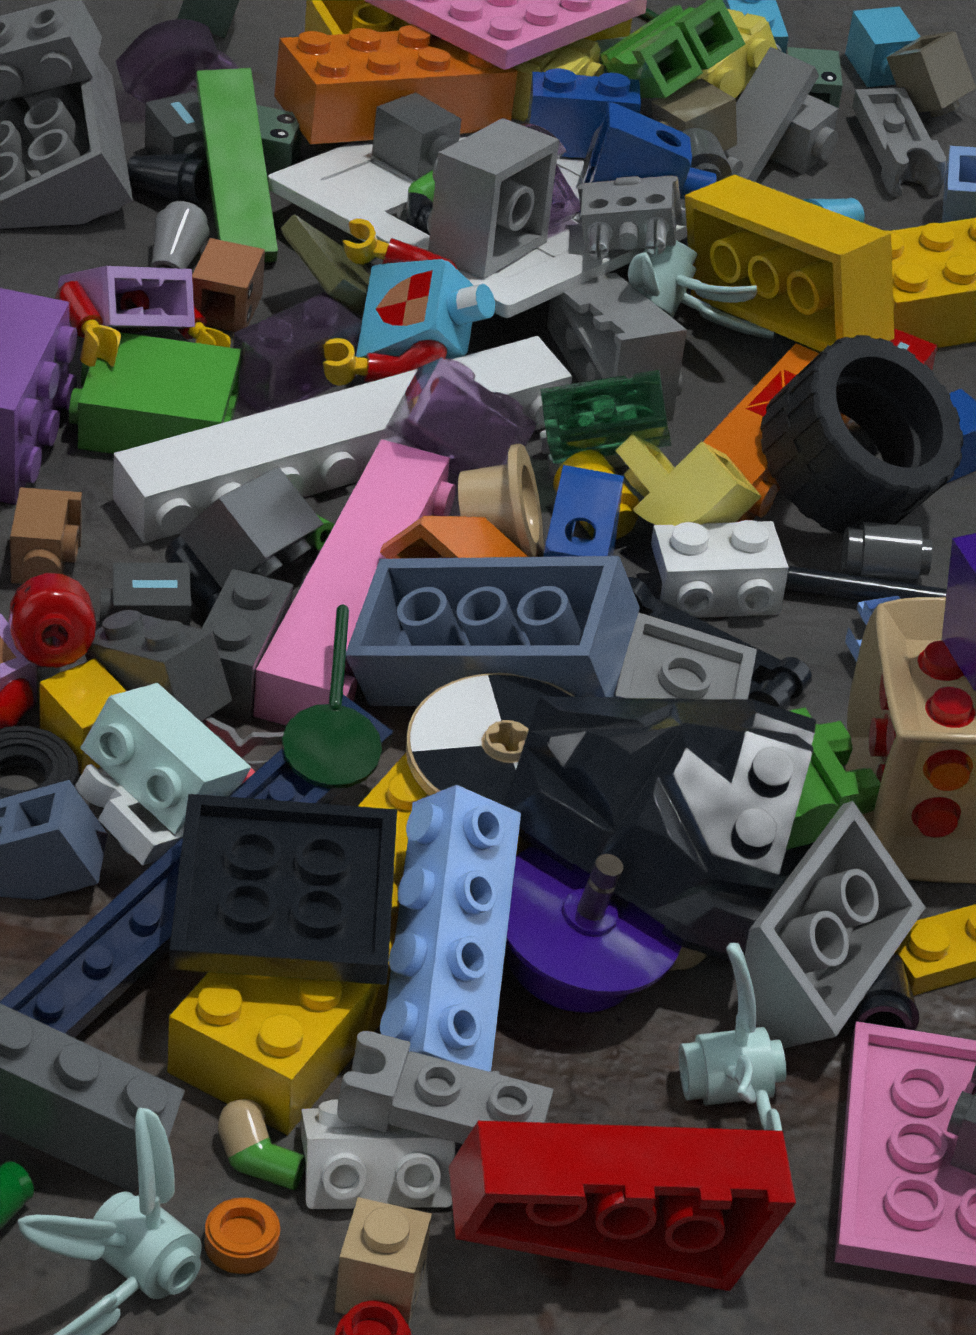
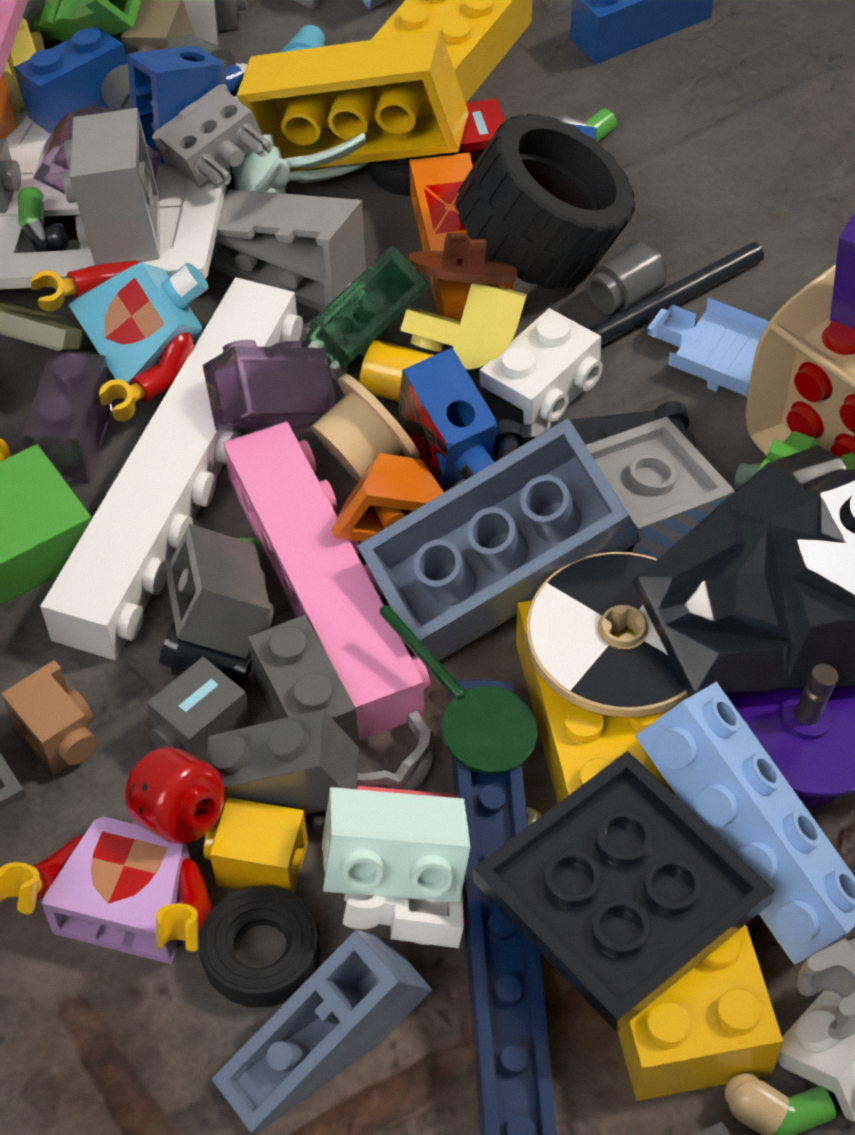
camera: 35 degrees left, 10 degrees up
(719, 430) = (463, 262): none -> copper piece

